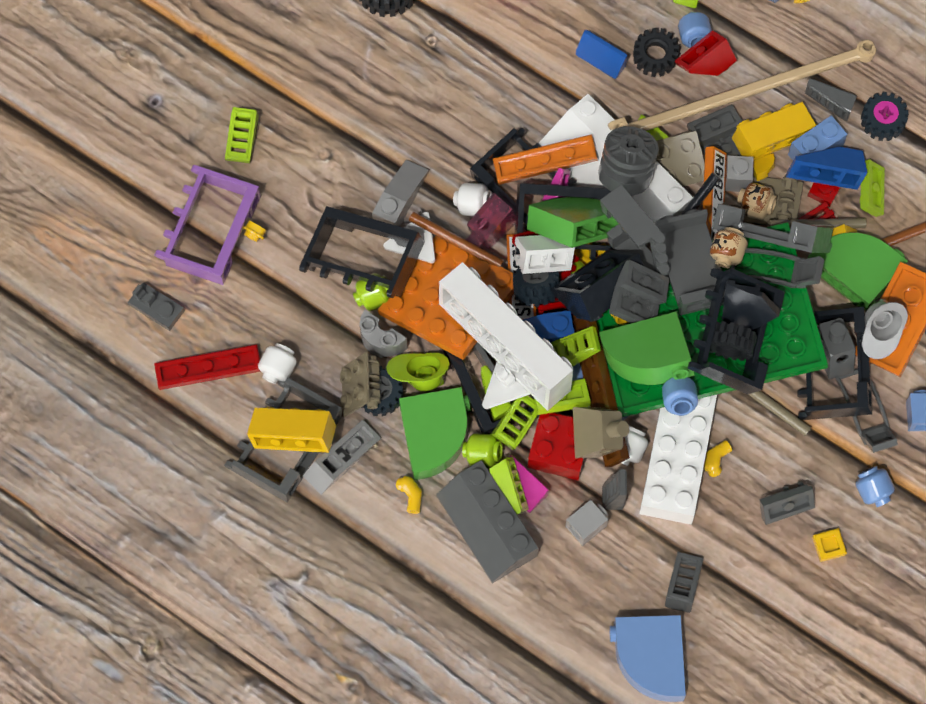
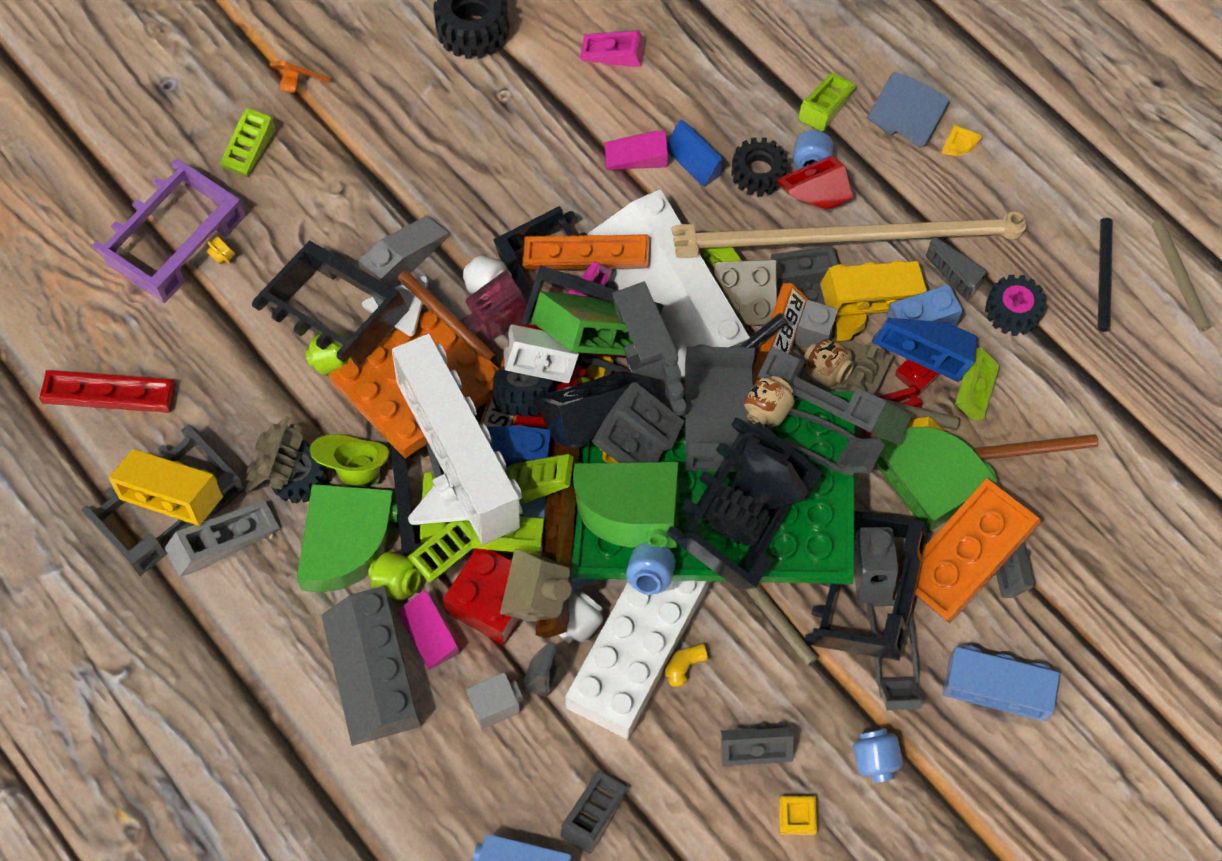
camera: 15 degrees right, 5 degrees down
(155, 306) = (76, 306): dark grey plate -> none
(256, 73) = (291, 72): none -> orange piece
(277, 363) = (186, 406): white head -> none
(380, 342) = (316, 411): light grey cylinder -> none
(413, 491) = (293, 603): yellow arm -> none
(508, 480) = (411, 626): lime slope -> none
(555, 63) = (637, 151): none -> dark pink slope
(628, 159) = (679, 270): dark grey wheel -> none
(883, 328) = (941, 555): light grey piece -> none

